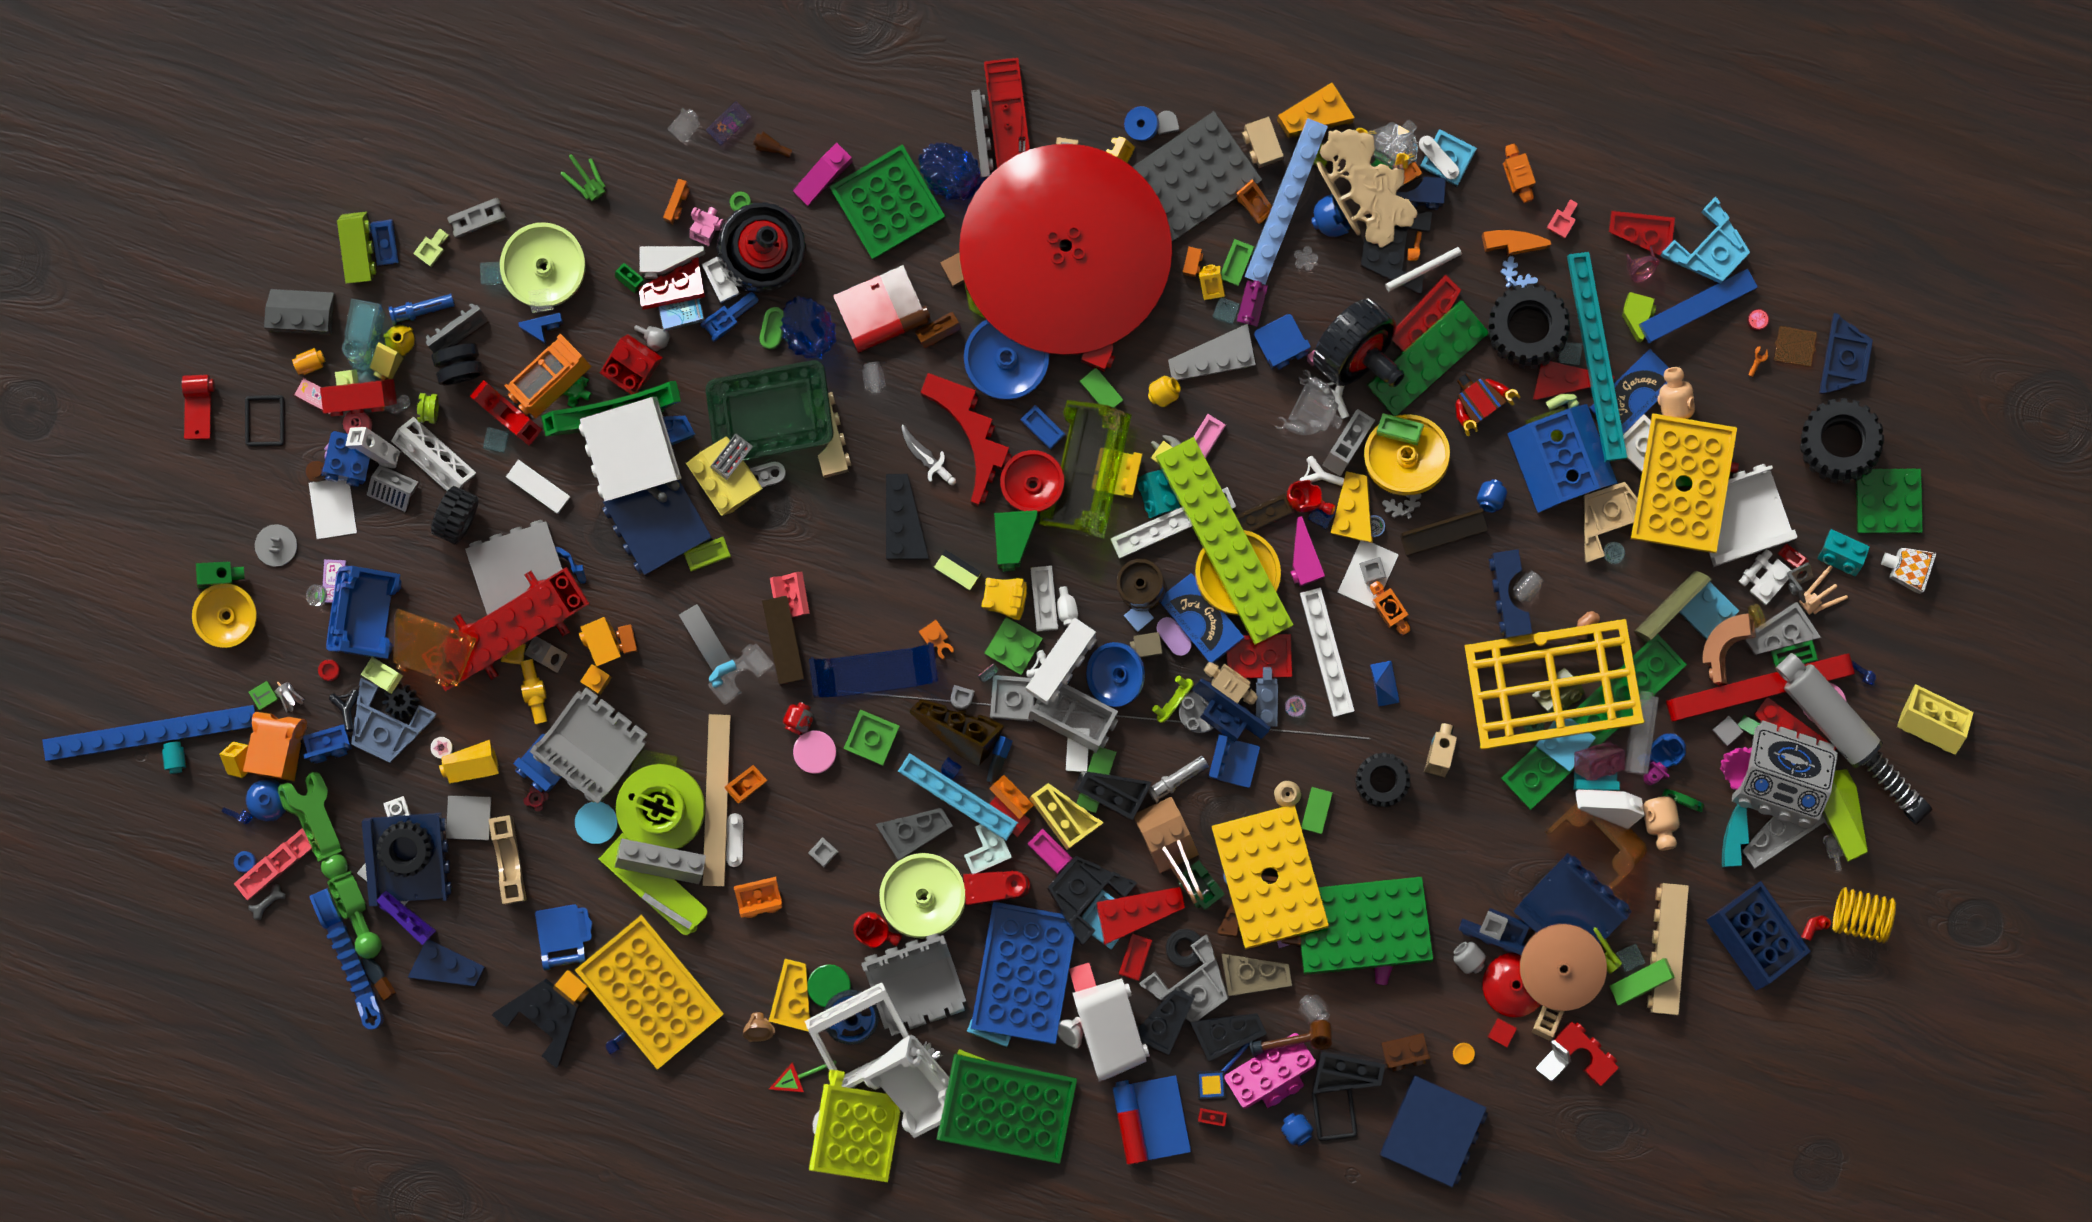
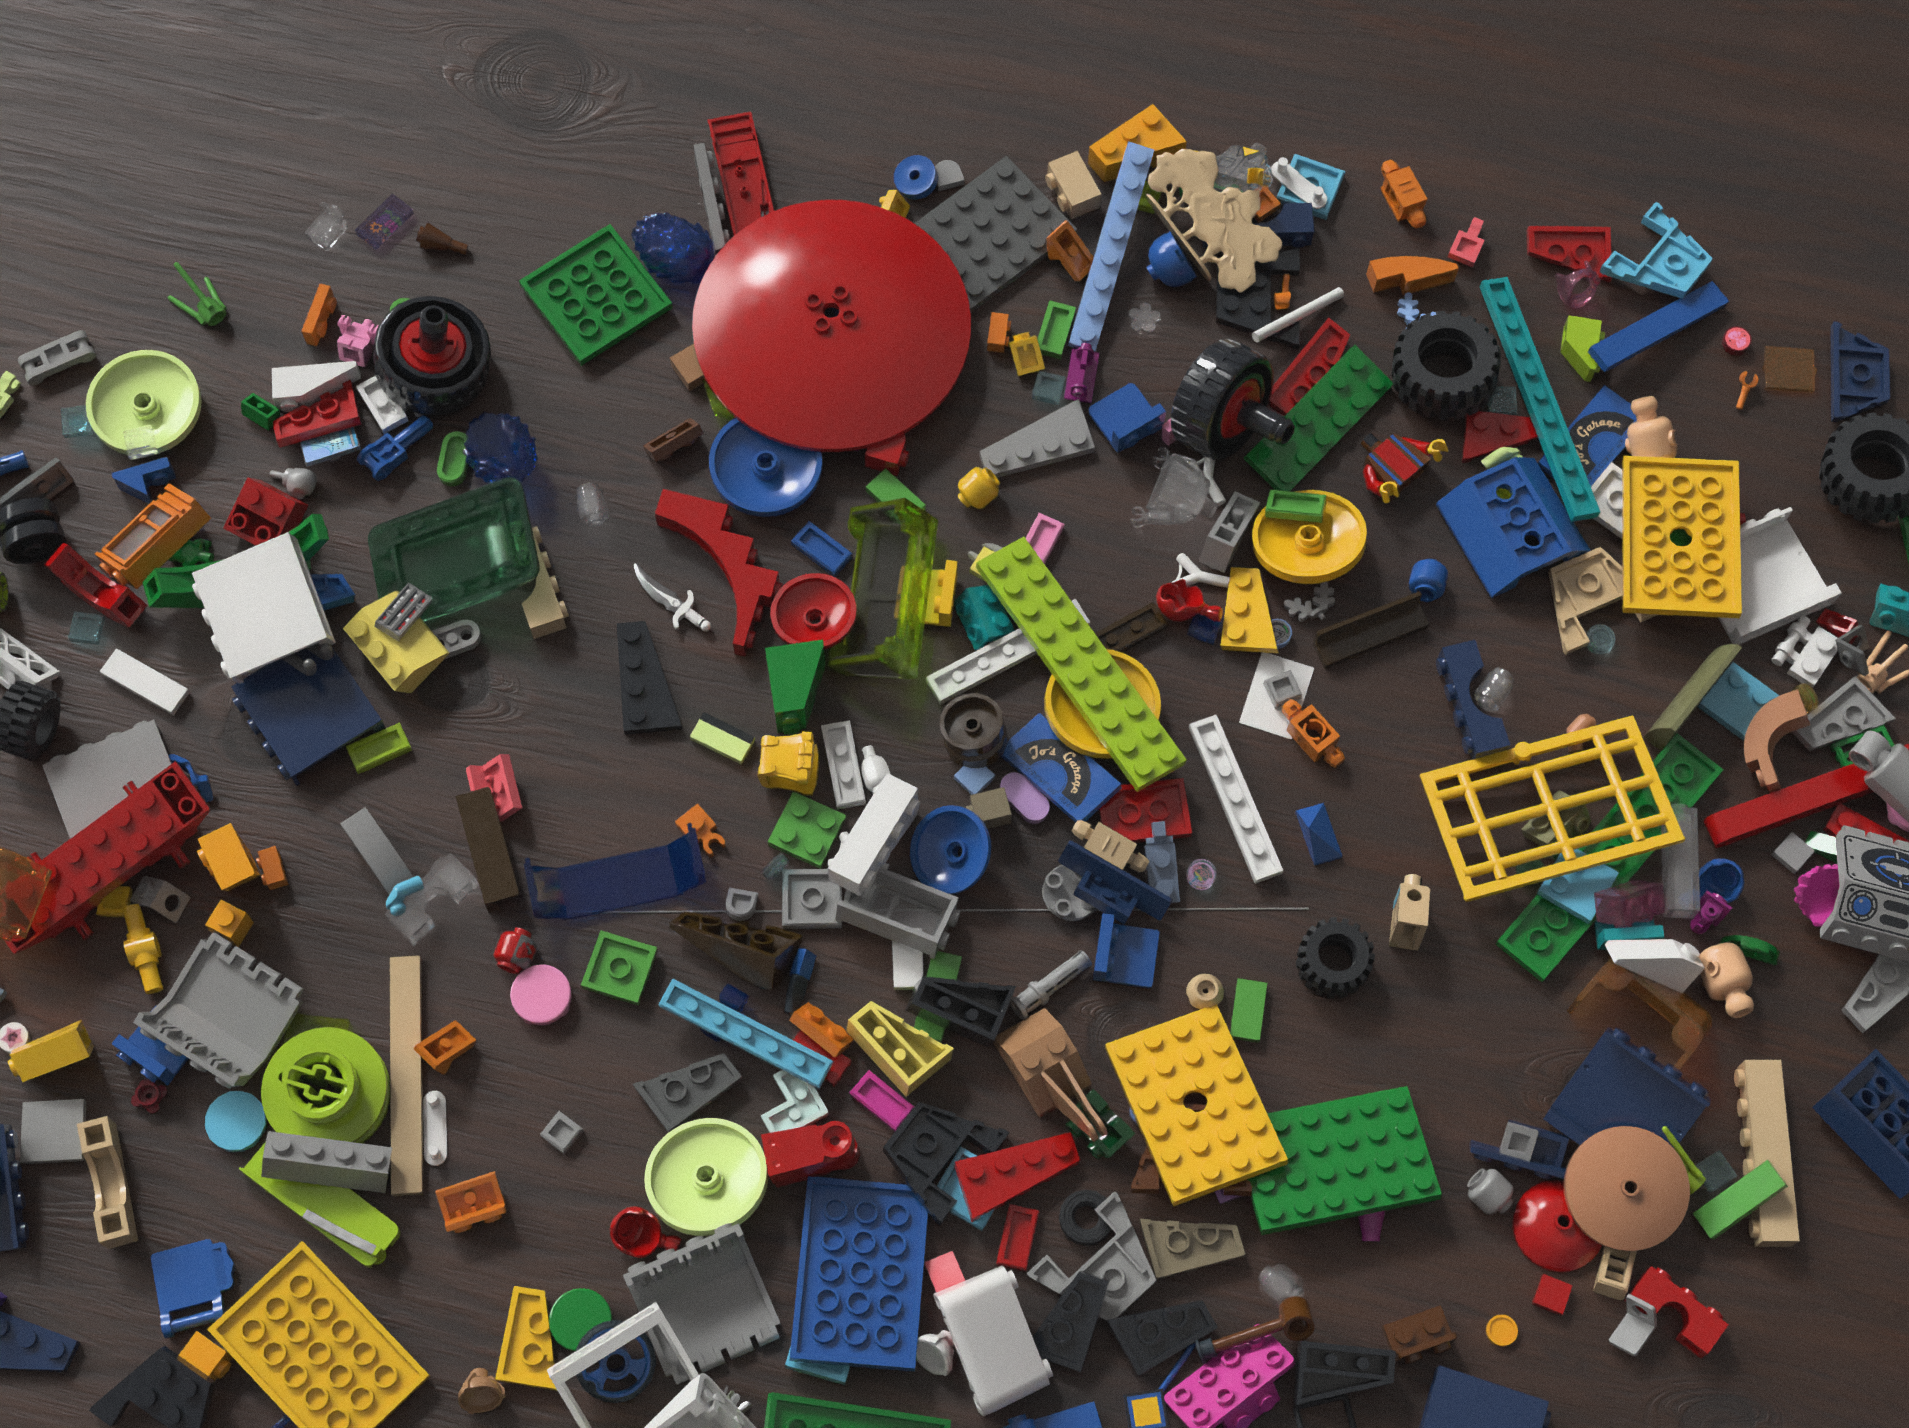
camera: 10 degrees left, 15 degrees down
(823, 174) = (512, 263): dark pink slope -> none
(881, 309) = (596, 422): door -> none
(1184, 688) = (1047, 862): lime piece -> none
(1305, 560) = (1192, 684): dark pink slope -> none
(1734, 837) = (1831, 991): teal slope -> none

